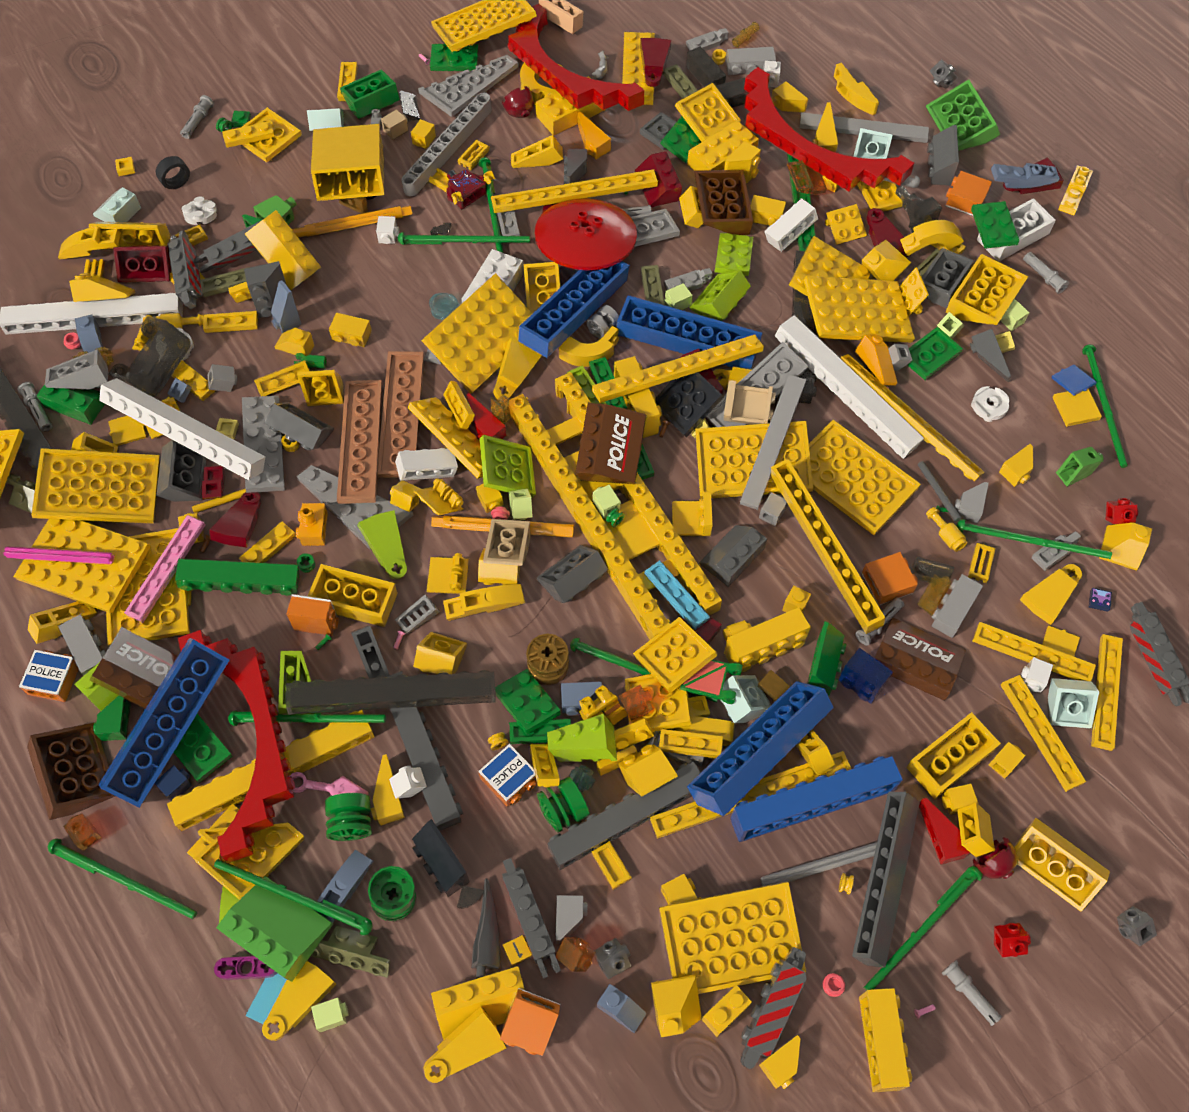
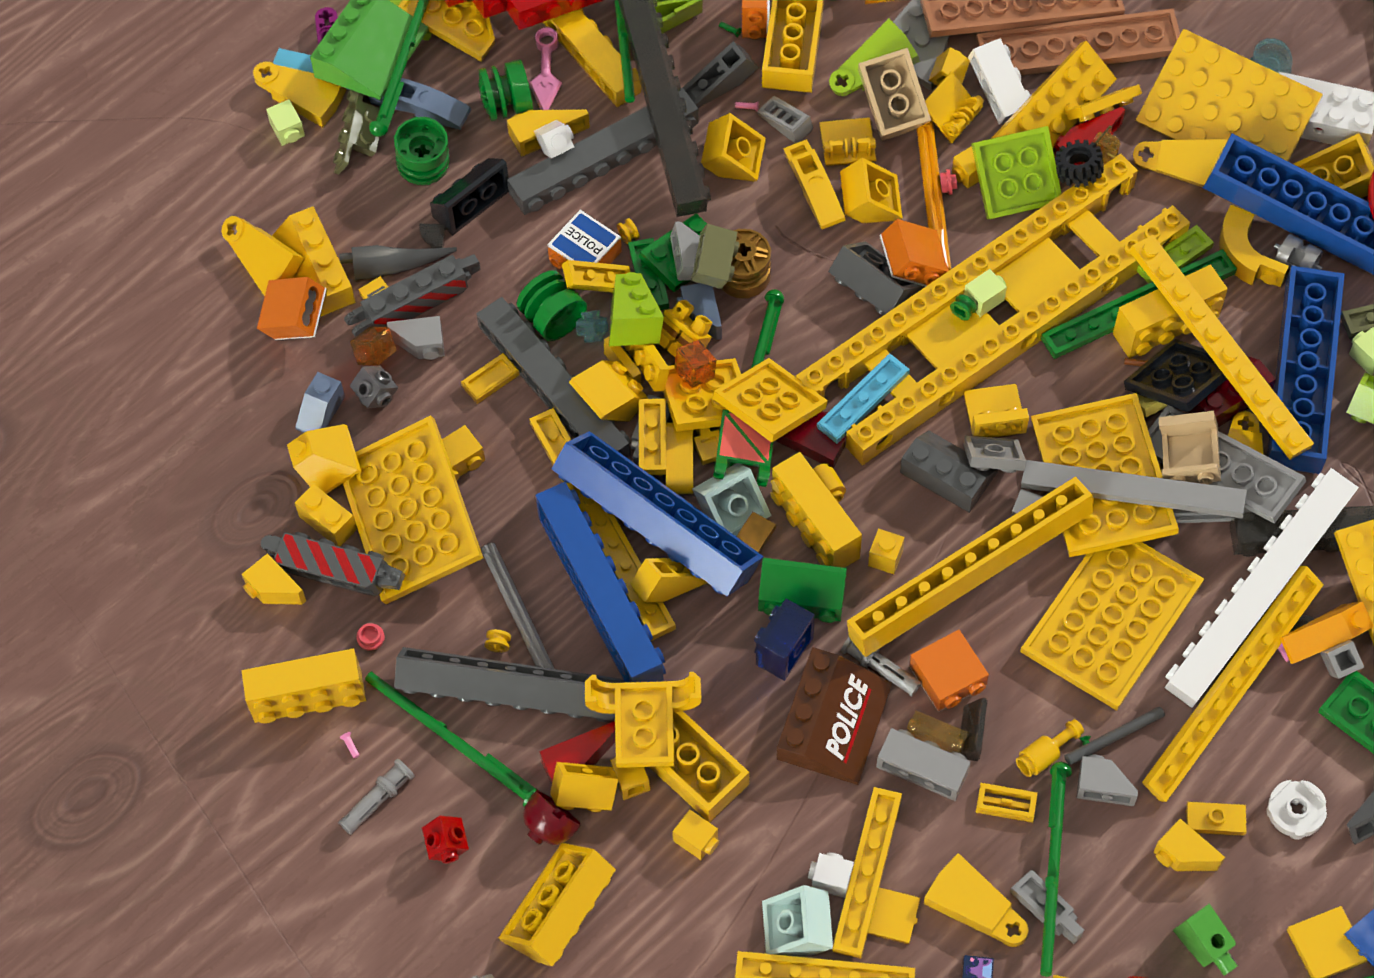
camera: 85 degrees right, 0 degrees up
(425, 531) = (894, 94): none -> tan slope
(507, 417) = (1079, 153): none -> black tyre
(507, 542) = (896, 189): tan slope -> none
(520, 504) = (964, 199): yellowish green brick -> none
(539, 692) = (684, 247): none -> light grey slope
(555, 670) = (715, 256): none -> olive brick
(564, 542) = (913, 253): none -> orange piece
(610, 444) = (1070, 277): reddish brown slope -> none
(730, 520) = (994, 453): none -> light grey plate
(933, 774) = (643, 716): none -> yellow piece
(995, 447) = (1216, 818): none -> yellow plate
(1043, 733) = (745, 884): yellow plate -> none

